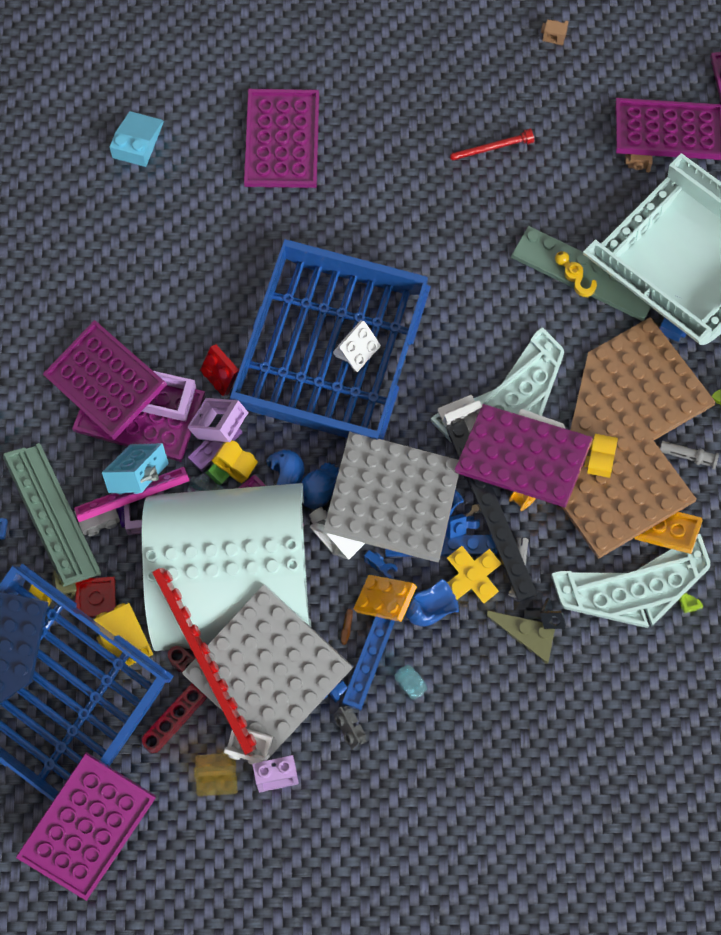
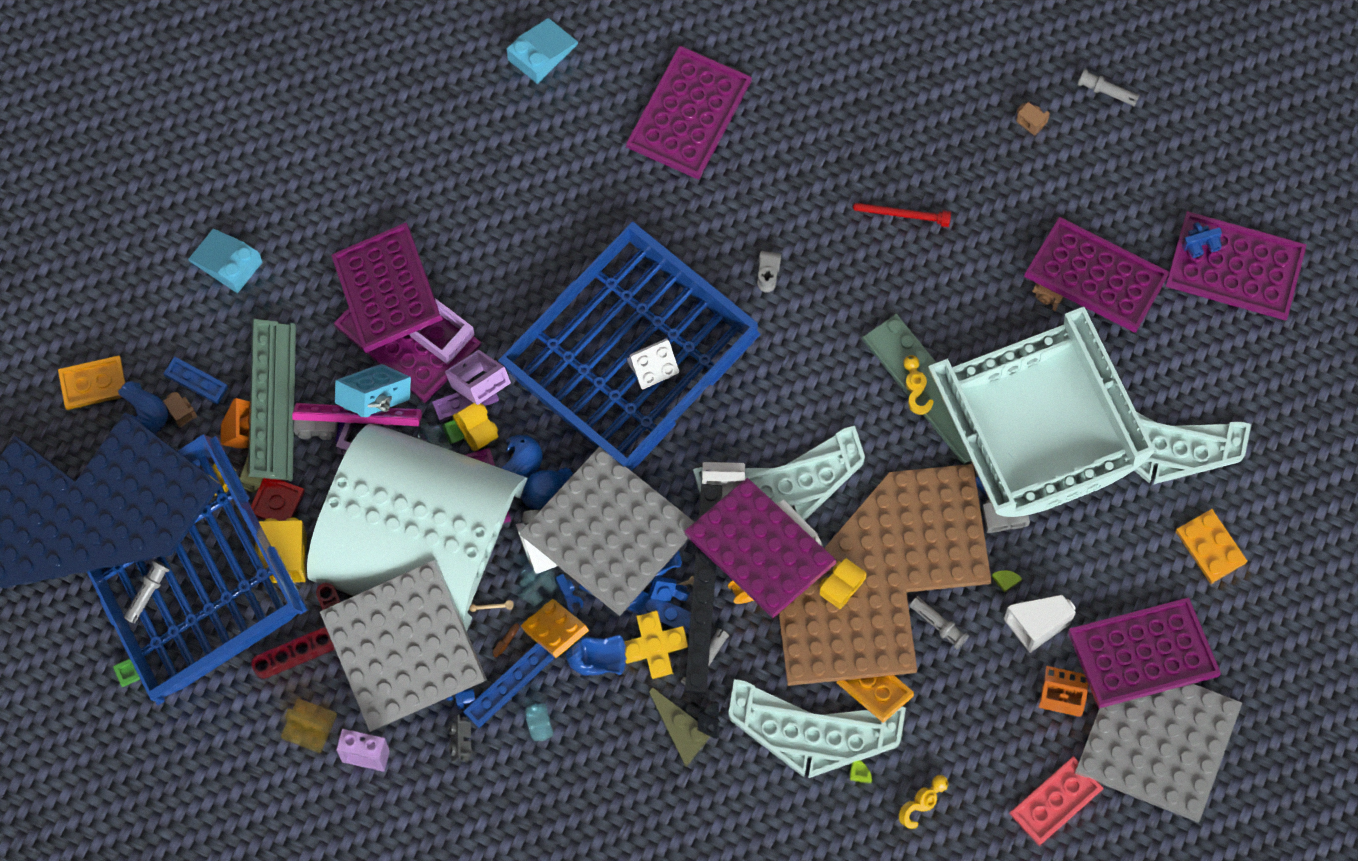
camera: 25 degrees right, 0 degrees up
(21, 716) = (150, 583): none -> light grey pin
(30, 548) = (236, 425): none -> orange slope
(36, 801) = (126, 673): none -> bright green plate
(86, 826) = (159, 716): magenta plate -> none
(208, 666) = (345, 617): red plate -> none
(219, 370) = (504, 327): red plate -> none
(259, 755) = (350, 711): white bracket -> none
(334, 596) = (509, 605): none -> tan hinge
(347, 578) = (544, 580): none -> clear light blue hips
(409, 233) = (768, 269): none -> light grey piece
(692, 351) = (999, 523): none -> light grey brick

